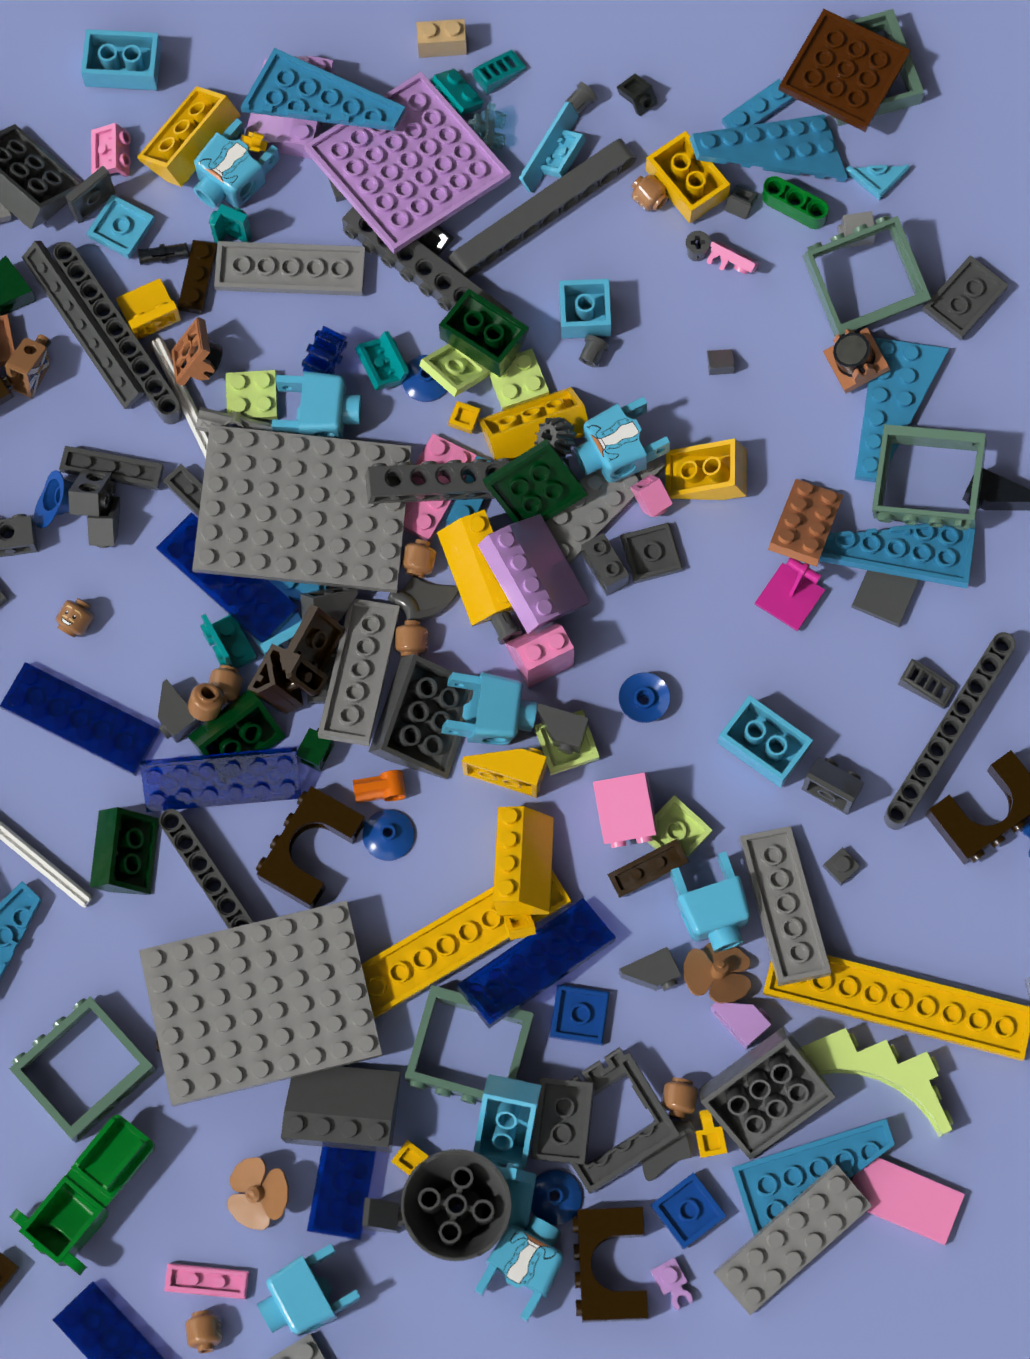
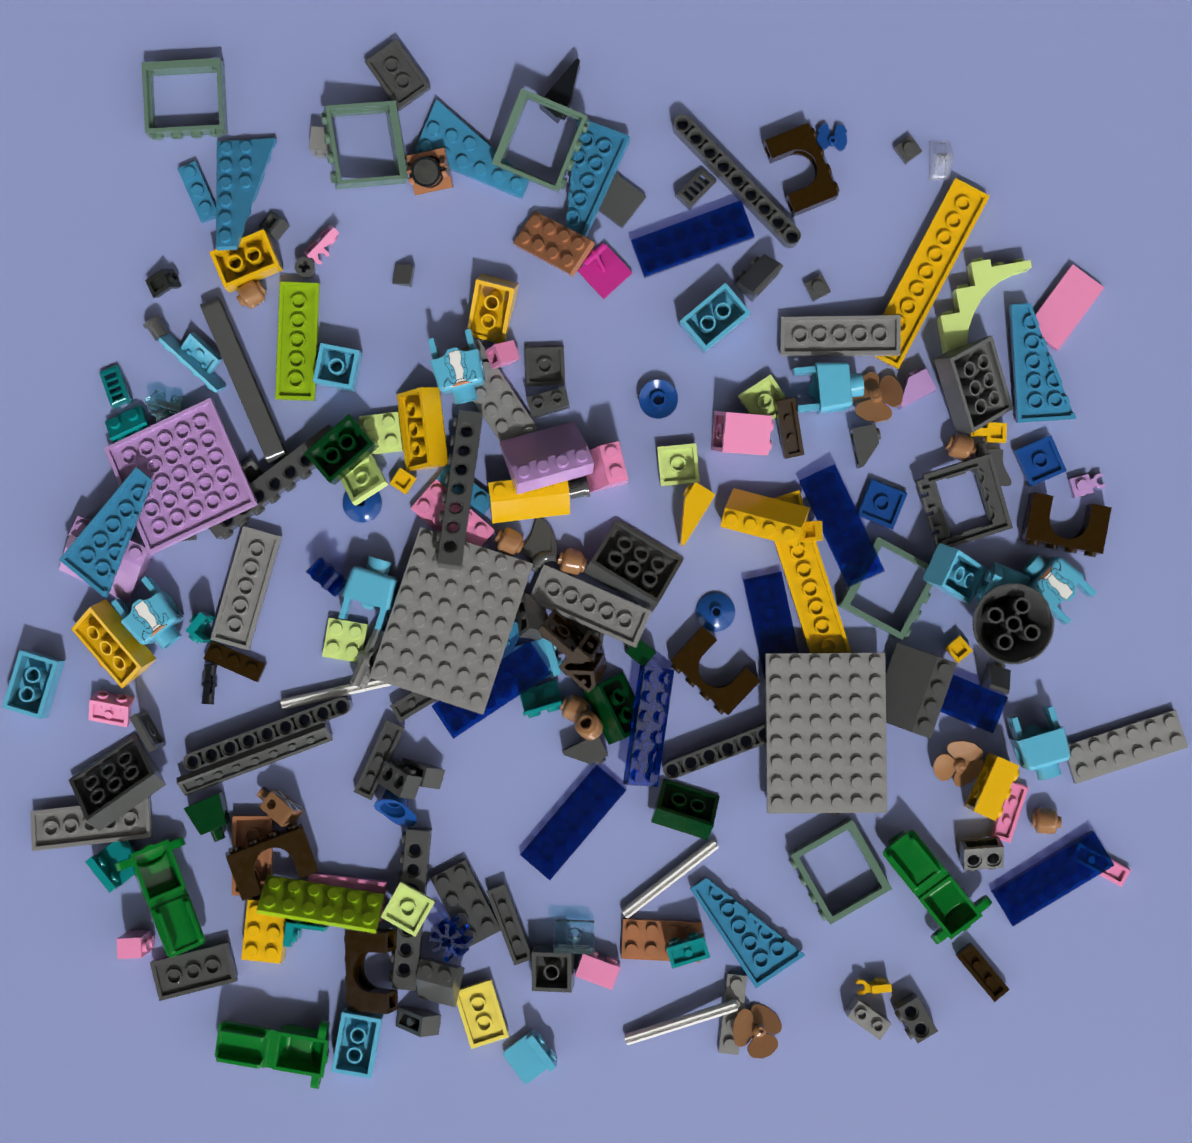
camera: 80 degrees left, 15 degrees up
(74, 617) = (494, 810): medium nougat head -> none
(120, 226) = (178, 713): medium azure plate -> none
(148, 309) = (253, 705): yellow bracket -> none
(148, 1249) = (981, 849): none -> dark grey brick
(202, 354) = (303, 673): nougat piece -> none
(234, 1242) = (992, 786): none -> yellow brick
(255, 141) = (135, 592): yellow plate -> none
(382, 361) = (342, 533): teal bracket -> none
(387, 786) = (680, 607): orange piece -> none
(401, 904) = (770, 615): none -> clear blue plate
(441, 38) = (77, 425): tan brick -> none
(494, 710) = (644, 512): medium azure piece -> none
(535, 484) = (479, 439): dark green plate -> none
(556, 1211) = (998, 546): blue dish -> none
(559, 434) = (444, 415): dark grey gear -> none
(563, 1121) = (960, 532): dark grey plate -> none
(564, 728) = (672, 464): dark grey slope -> none
(593, 350) = (372, 370): dark grey bush -> none
(607, 256) = (297, 341): none -> lime plate
(790, 192) = (289, 173): green beam -> none
(792, 1239) = (1078, 392): light grey plate -> none
(844, 70) = (187, 114): reddish brown plate -> none
(861, 694) = (692, 239): none -> clear blue plate
(877, 178) = (280, 115): medium azure tile -> none

